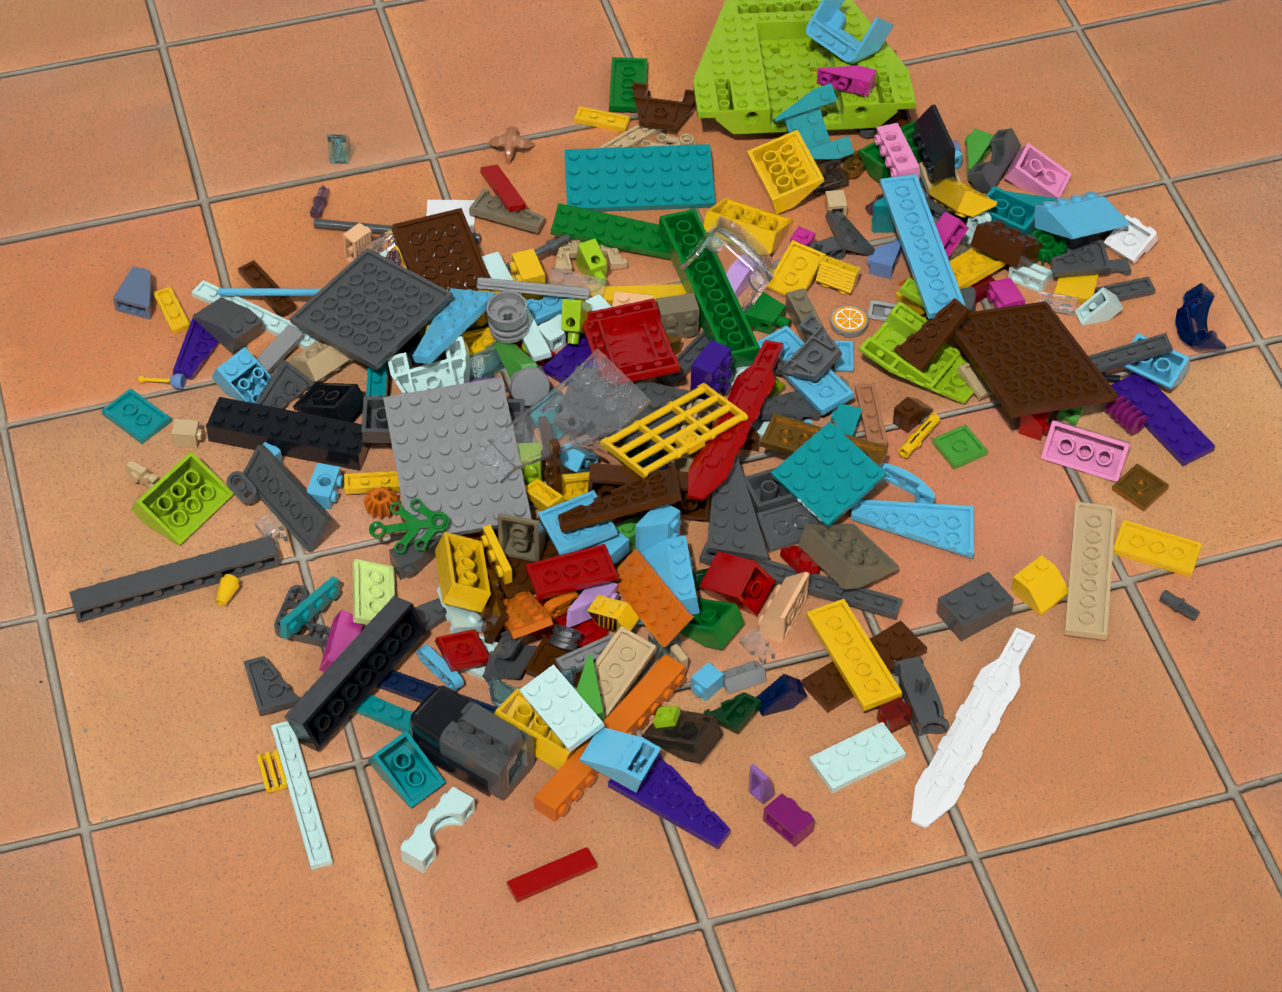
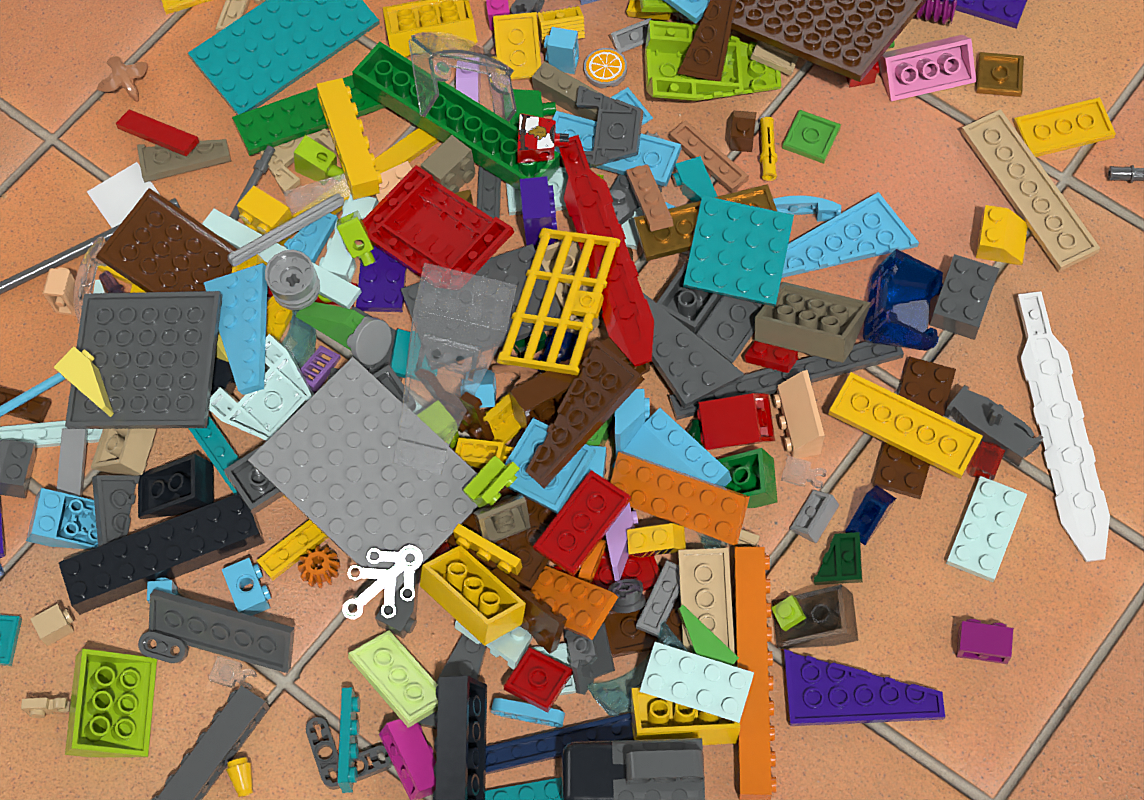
camera: 30 degrees left, 15 degrees up
(325, 294) = (85, 376): none -> light yellow slope
(530, 507) = (489, 481): none -> lime bracket
(621, 756) = (792, 693): medium azure slope -> none
(622, 257) = (348, 138): none -> yellow brick
(707, 681) = (791, 547): medium azure brick -> none
(749, 327) = (538, 139): none -> torso
(760, 785) = (933, 626): medium lavender slope -> none
(796, 407) = (649, 198): none -> nougat plate
(824, 289) = (562, 49): none -> medium azure brick
(923, 581) = (901, 303): none -> clear blue windscreen

